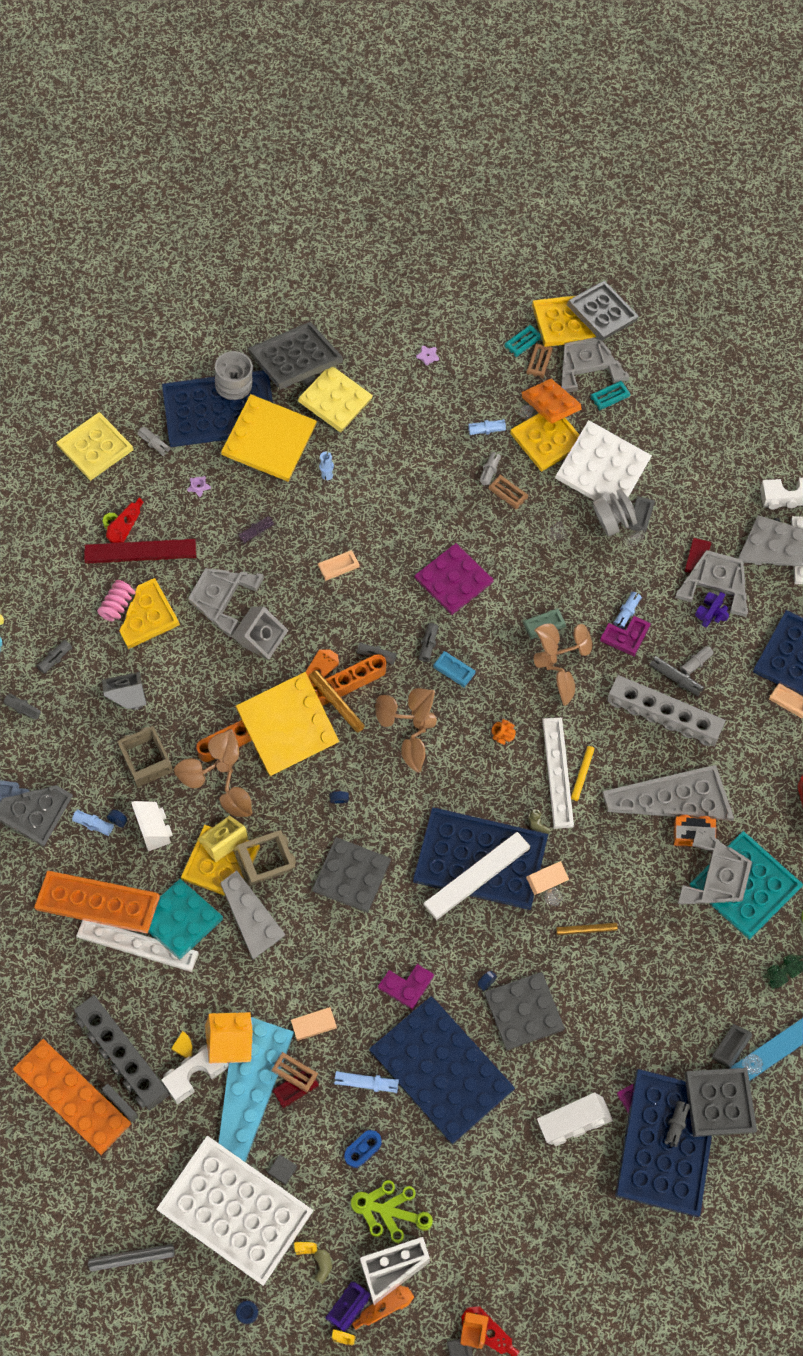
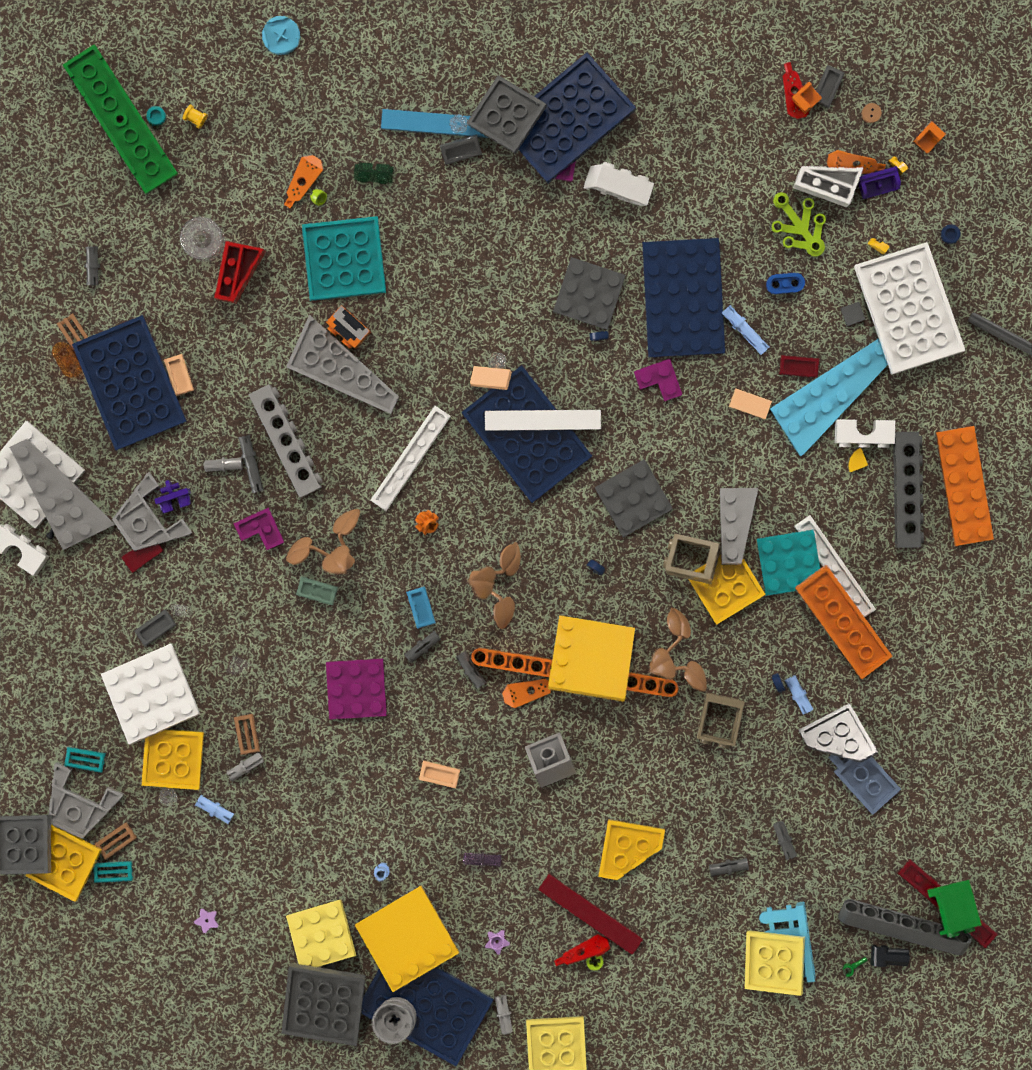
camera: 145 degrees left, 25 degrees up
(114, 600) = (644, 878): bright pink piece -> none
(125, 690) = (695, 791): slope -> none
(127, 1111) = (934, 449): dark grey tile -> none
(151, 824) = (757, 654): white slope -> none
(215, 591) = (558, 826): light grey wing -> none
(223, 838) = (712, 601): light yellow slope -> none
(229, 1037) = (824, 434): light orange slope -> none
(279, 1063) = (786, 360): medium nougat tile -> none
(324, 1264) = (873, 223): olive arm -> none
(336, 701) = (538, 647): pearl gold axle -> none
(535, 822) = (462, 429): olive arm -> none
(551, 401) = (142, 789): orange plate -> none
(582, 773) = (392, 442): yellow bar -> none
(586, 928) = (491, 318): pearl gold bar -> none
(615, 512) = (181, 640): light grey wheel -> none
(627, 610) = (241, 550): light blue pin -> none
(677, 1124) = (552, 122): dark grey pin -> none
(725, 877) = (358, 272): light grey wing -> none

